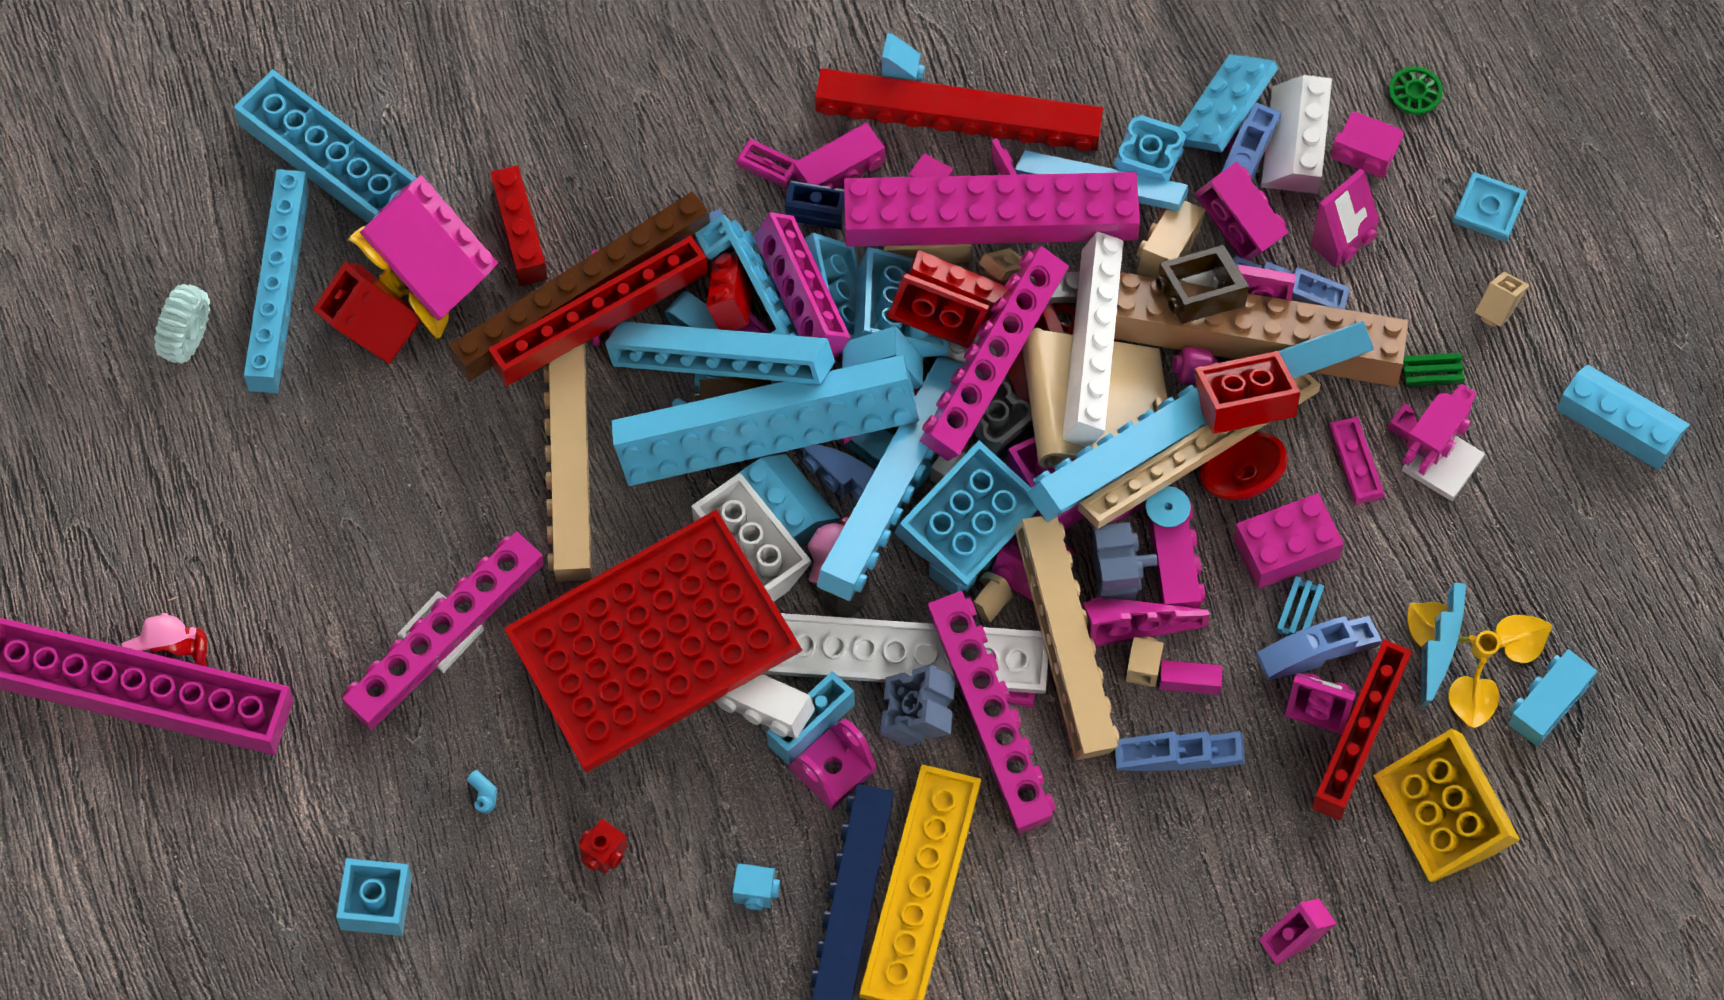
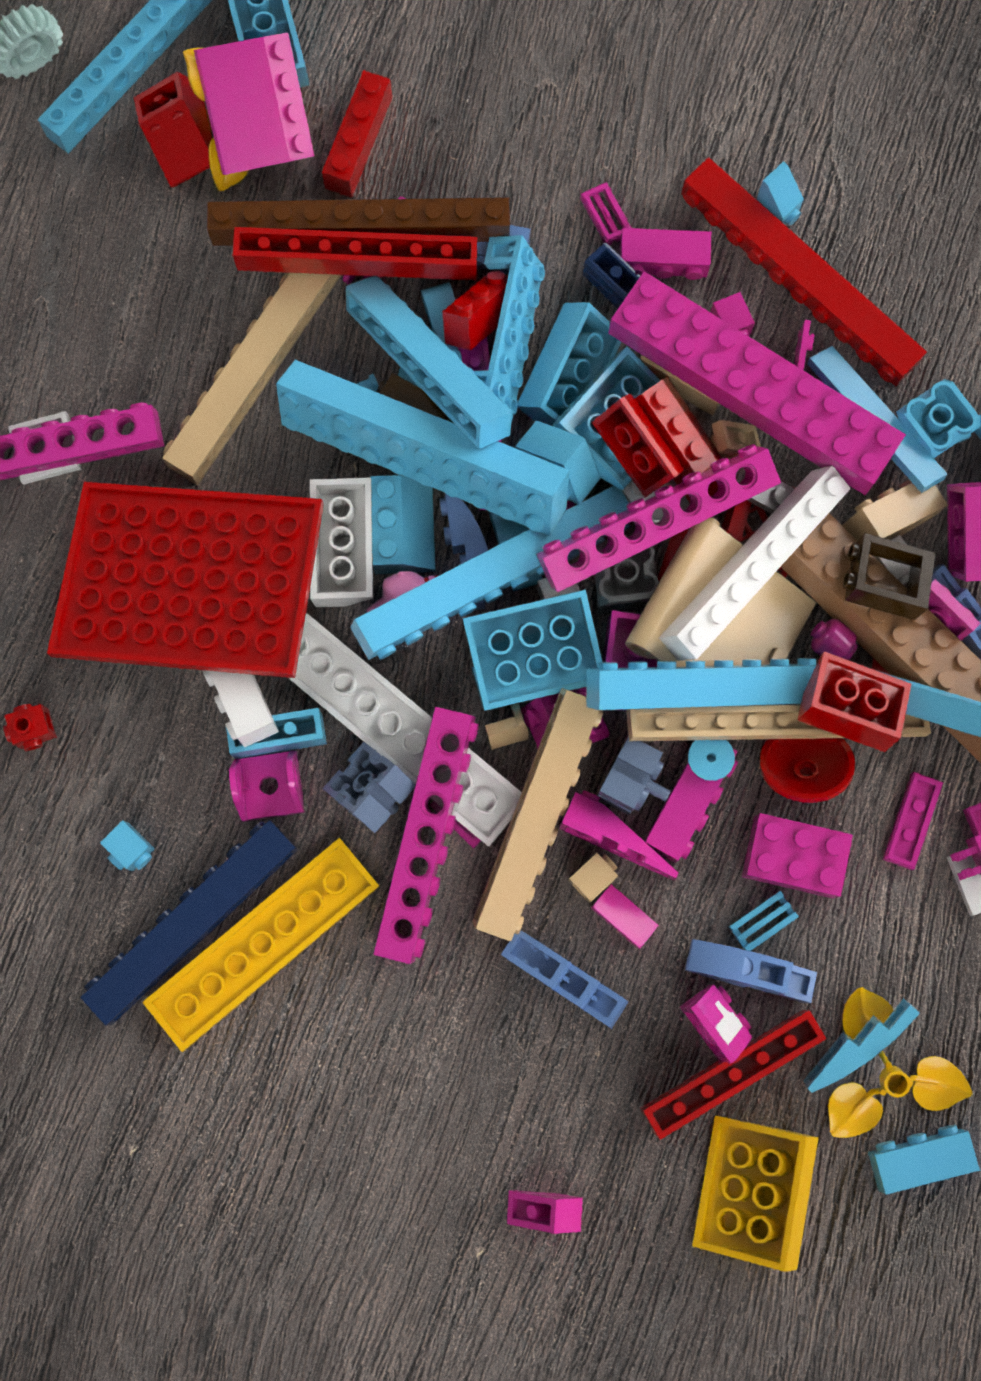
camera: 35 degrees right, 15 degrees up
(800, 281) = (542, 344): dark pink brick -> none

